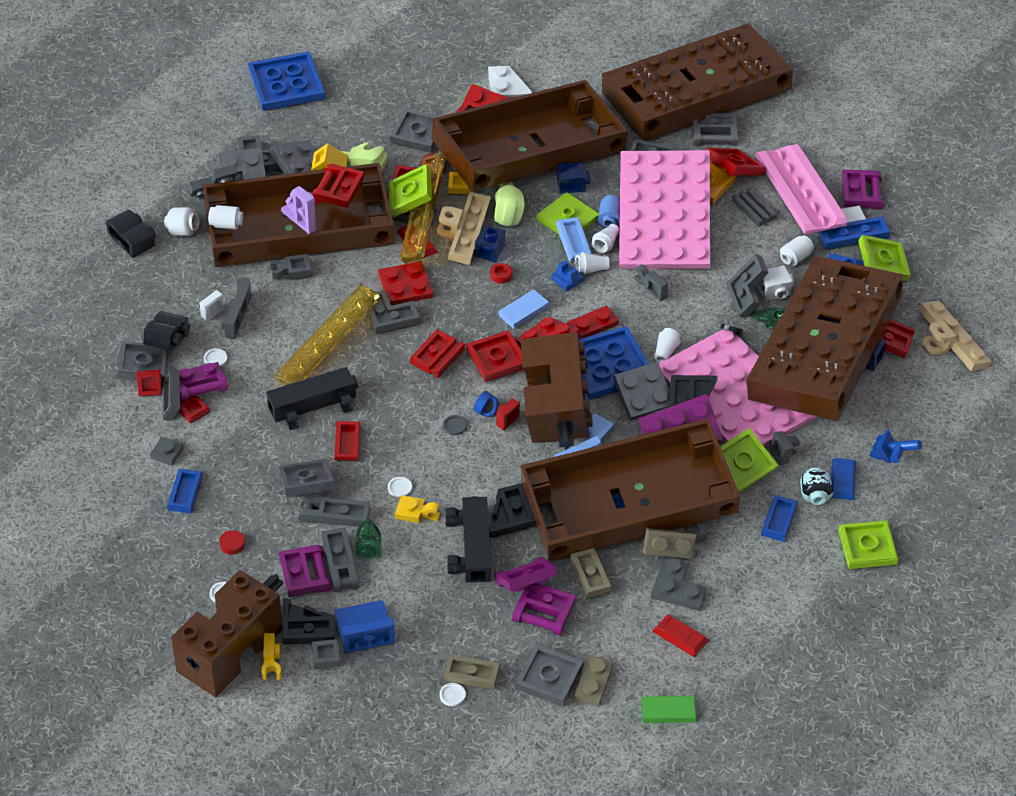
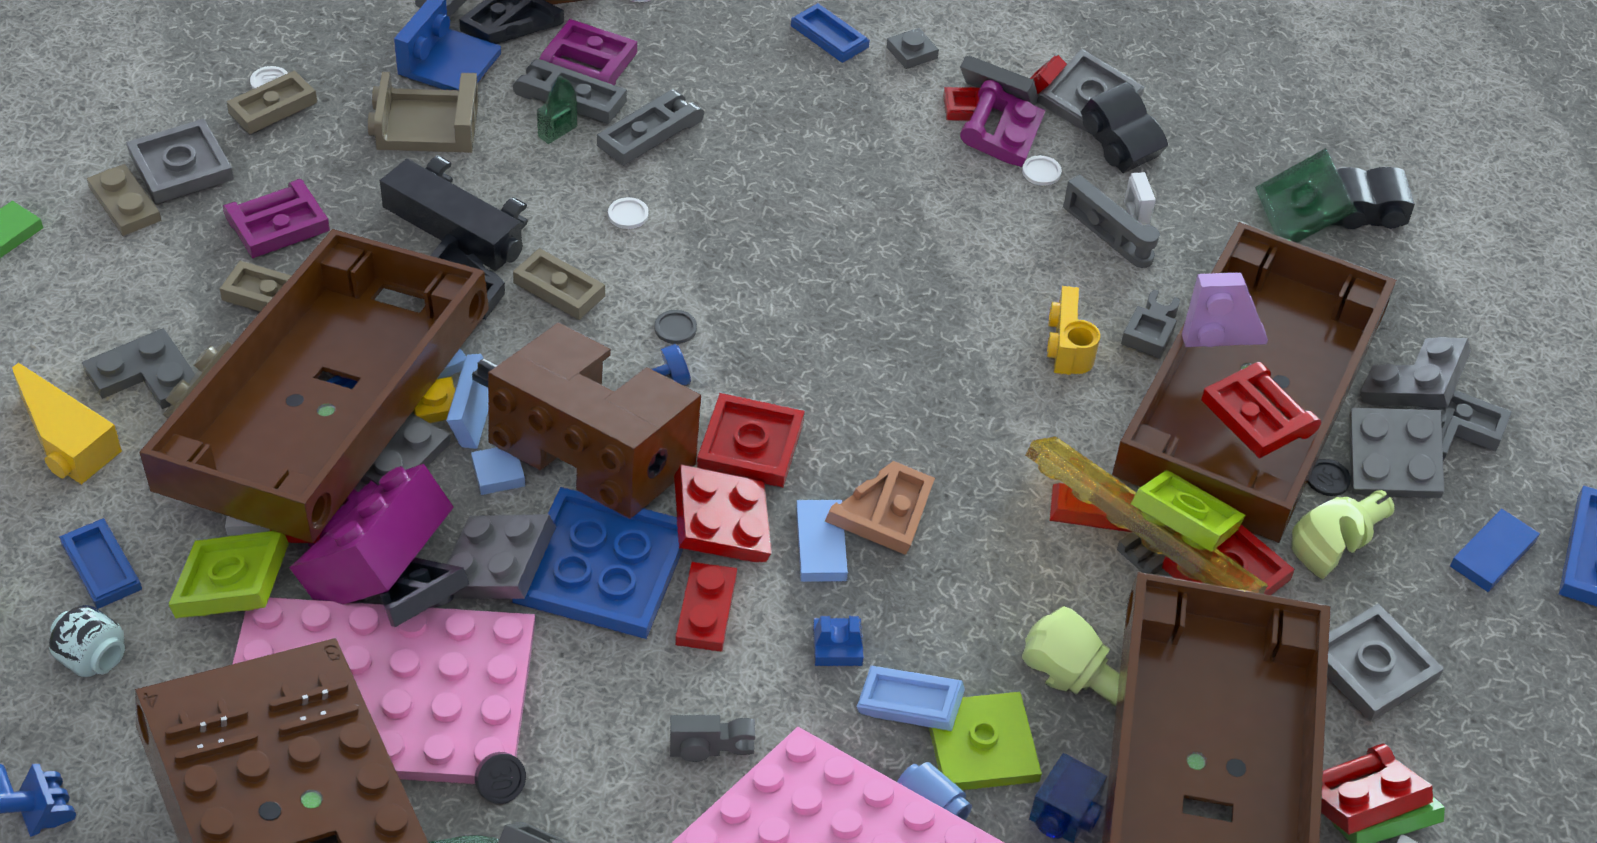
camera: 125 degrees right, 0 degrees up
(159, 246) = (1305, 198): none -> clear green plate
(182, 221) = (1355, 247): white head -> none
(218, 175) = (1410, 318): dark grey plate -> none
(225, 217) = (1284, 245): white brick -> none
(232, 542) = (704, 28): red tile -> none
(306, 478) = (725, 119): flat silver plate -> none
(312, 394) = (869, 207): black brick -> none
(319, 122) = (1494, 550): none -> blue tile
(327, 336) = (969, 281): clear yellow plate -> none
(328, 155) = (1350, 468): yellow brick -> none
(335, 284) = (1075, 340): none -> yellow plate
(347, 441) = (757, 204): red tile -> none
(388, 317) = (958, 365): dark grey plate -> none
(405, 283) = (1002, 431): red plate -> none
(414, 509) = (571, 198): yellow plate -> none
(415, 601) = (424, 117): none -> dark tan panel
(437, 353) = (823, 378): red plate -> none
(464, 226) = (1068, 573): tan plate -> none
(475, 474) = (559, 283): none -> dark tan plate
(488, 293) = (885, 507): none -> nougat wing
(490, 243) = (999, 576): clear blue brick -> none
(501, 273) = (927, 563): red tile -> none
(508, 413) = (622, 365): red plate -> none
(519, 578) = (329, 205): magenta plate -> none
(590, 263) = (835, 685): white cone -> none
(604, 240) = (874, 745): white cone -> none
(667, 343) = (560, 663): white cone -> none
(680, 635) = (75, 323): red tile -> none
(740, 574) = (71, 434): none -> yellow slope
(783, 447) = (198, 650): dark grey tile -> none
(843, 478) = (65, 704): blue tile -> none

